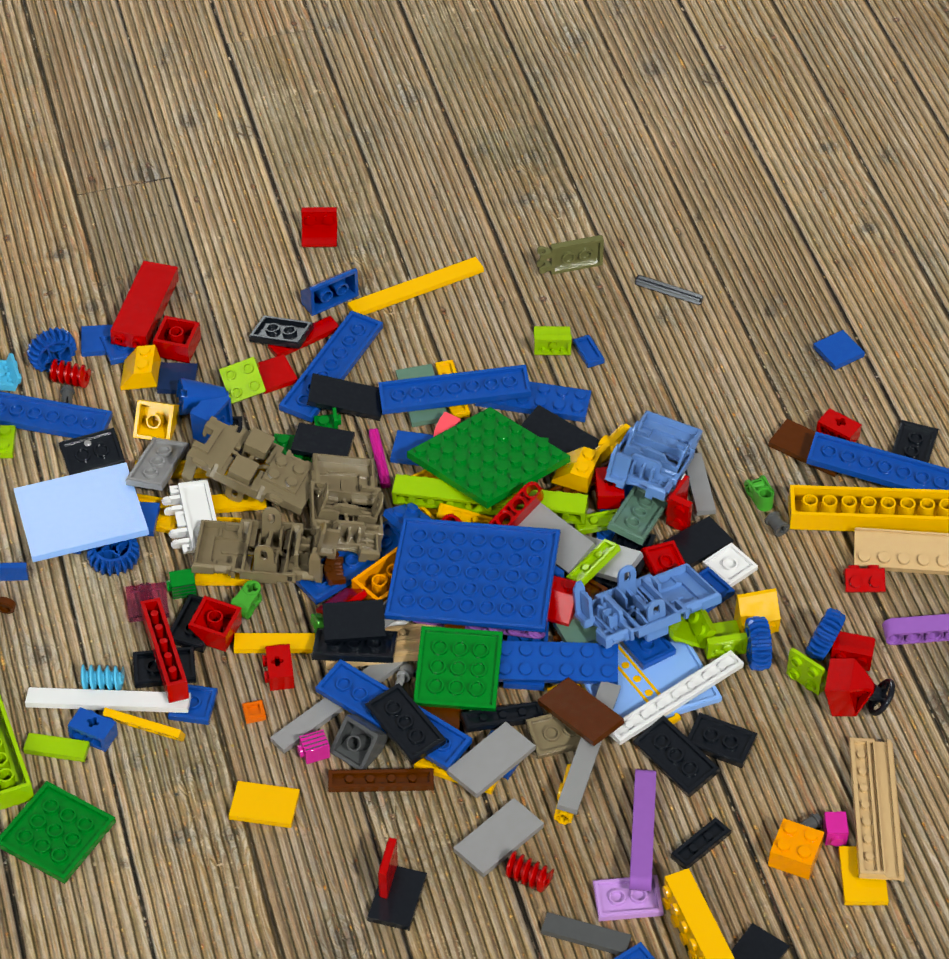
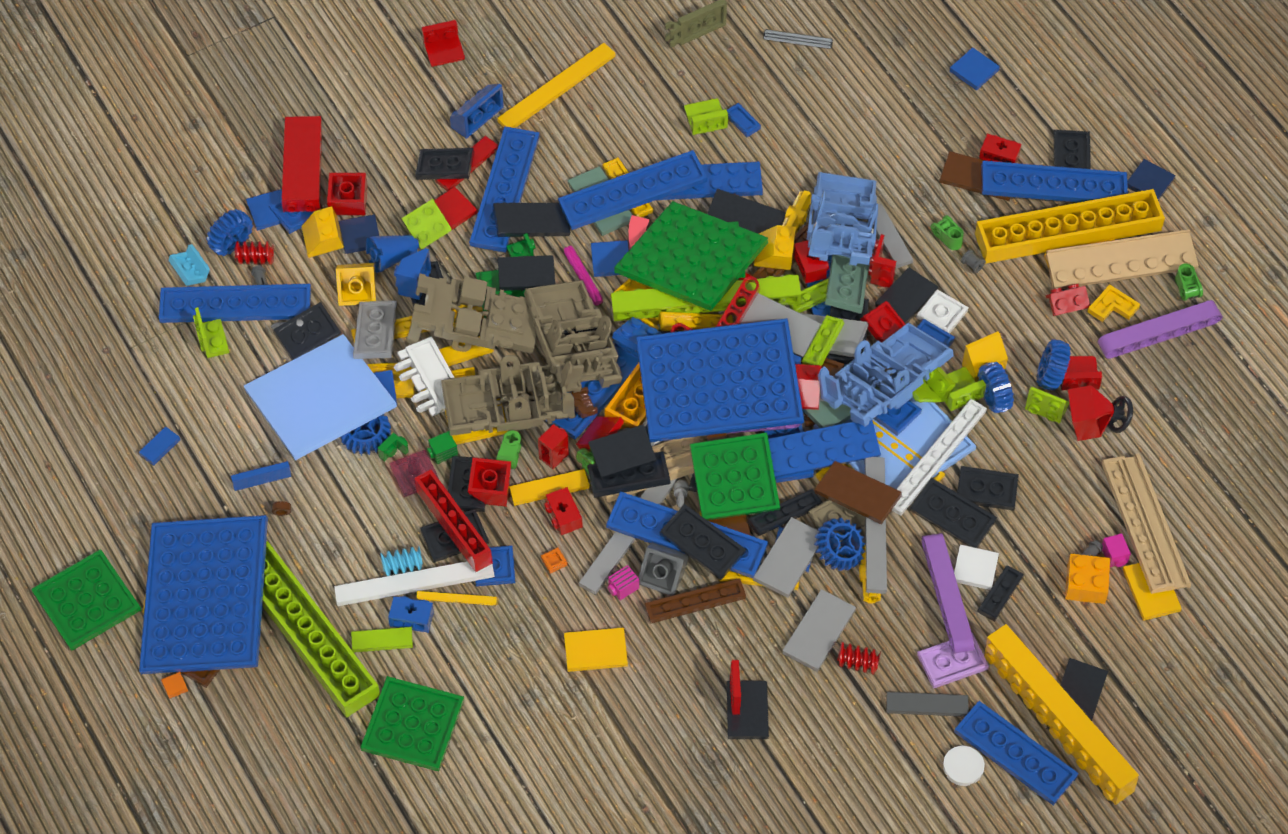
camera: 15 degrees left, 10 degrees up
(133, 571) = (390, 446): none -> green bracket
(289, 603) = (553, 446): none -> red brick
(554, 771) = (829, 544): none -> blue gear
(682, 812) = (975, 567): none -> white tile
(910, 589) = (1111, 300): none -> yellow plate

